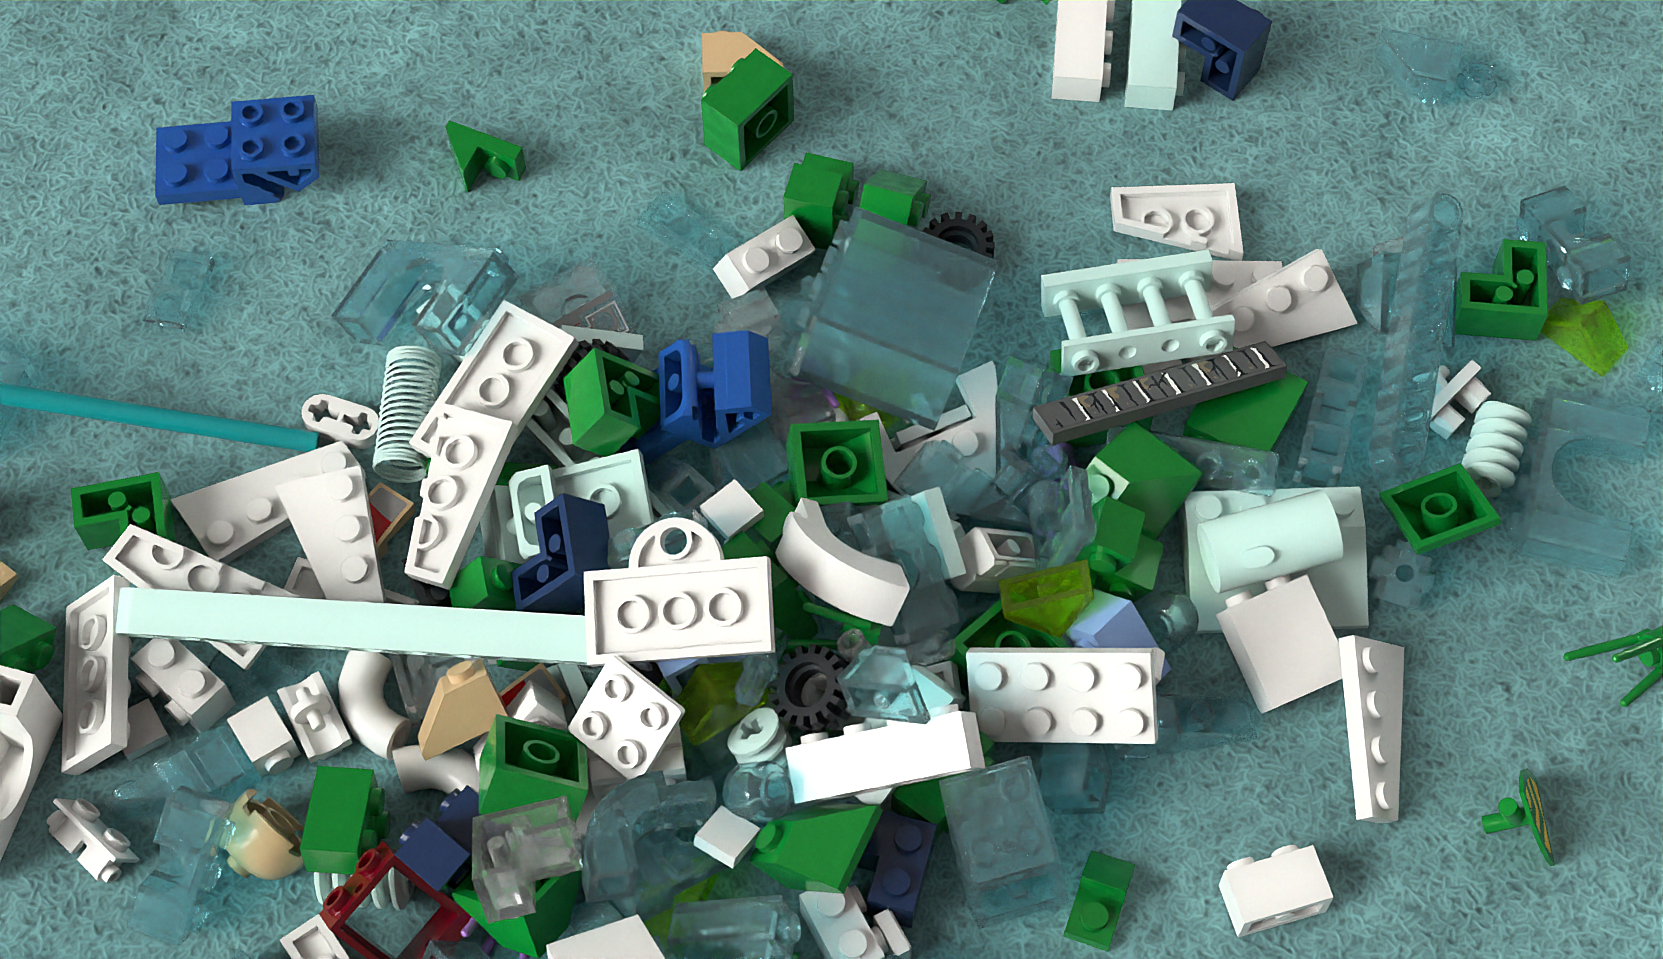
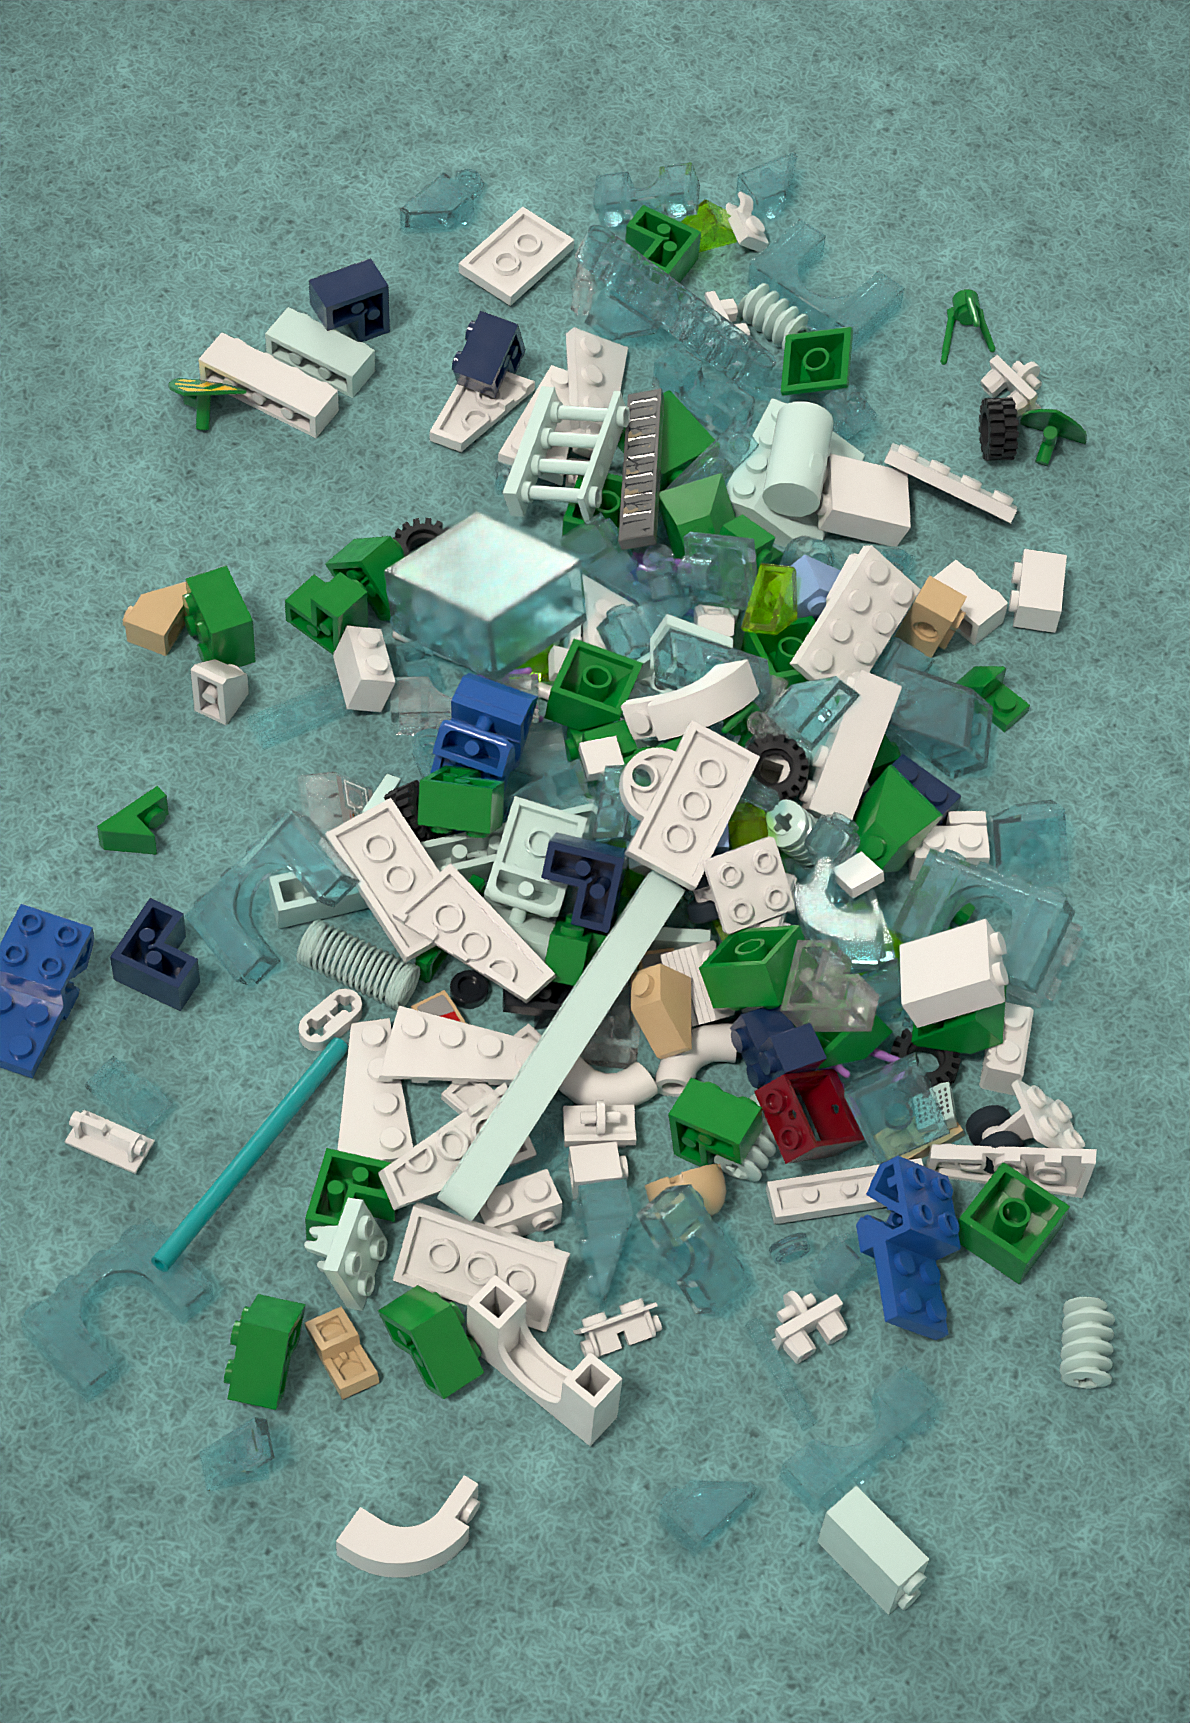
camera: 70 degrees left, 5 degrees down
(57, 550) = (350, 1252): none -> light aqua plate
(121, 296) = (108, 1140): none -> white hinge
(329, 229) = (150, 956): none -> dark blue brick
(673, 146) = (218, 689): none -> white slope
(1151, 781) = (932, 617): none -> tan brick
(1212, 816) = (983, 606): none -> white brick
(1235, 187) = (490, 352): none -> dark blue brick
(1407, 163) = (516, 256): none -> white plate
(1485, 749) = (998, 429): none -> black tyre
(1578, 730) = (1016, 383): none -> white hips
(1608, 365) = (747, 228): none -> white plate

